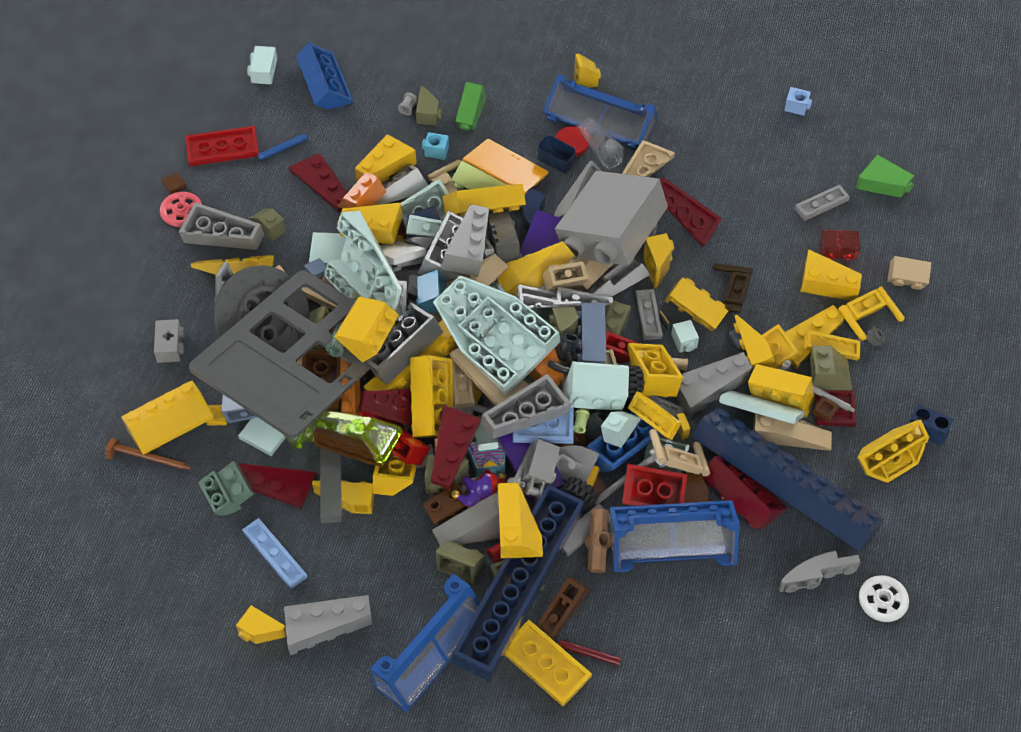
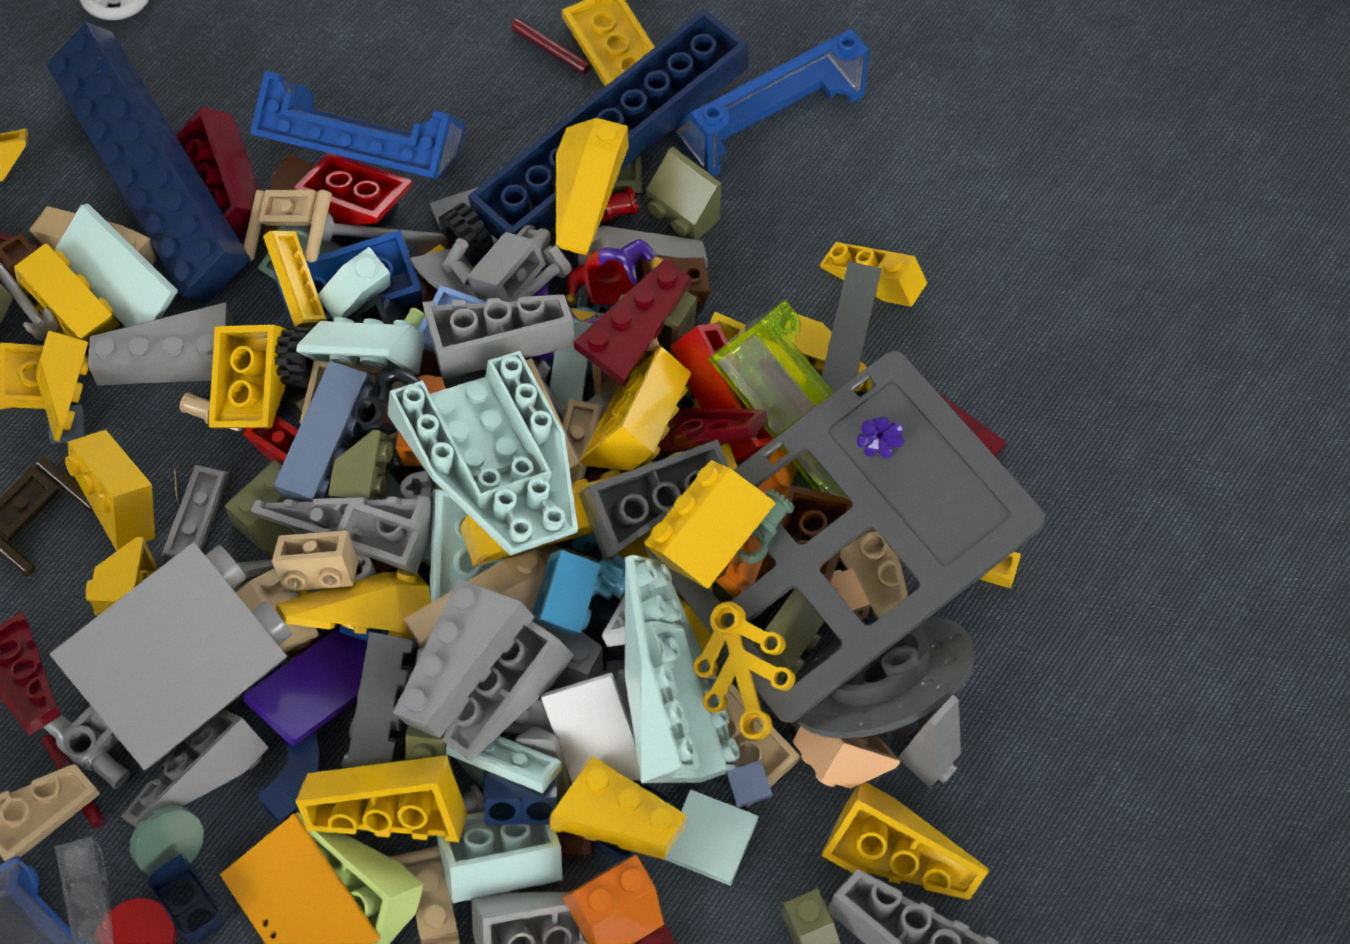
camera: 160 degrees left, 5 degrees up
(113, 446) = (1186, 557): dark orange piece -> none
(167, 417) = (1087, 567): yellow slope -> none
(168, 341) = (1061, 746): light grey brick -> none
(226, 489) = (1014, 417): sand green brick -> none
(259, 627) = (1005, 203): yellow slope -> none
(274, 553) = (959, 312): light blue tile -> none
(288, 386) = (880, 436): none -> dark purple plant
(324, 621) = (908, 181): light grey wedge -> none
(330, 556) = (900, 275): none -> yellow slope
(342, 298) = (739, 665): none -> yellow plant
(563, 606) = (548, 103): reddish brown slope -> none
(576, 168) = (165, 836): none -> sand green tile
(598, 540) = (469, 166): medium nougat piece -> none
(684, 428) = (251, 299): yellow tile -> none
(685, 336) = (160, 445): light aqua brick -> none
(812, 571) = (191, 46): light grey slope -> none

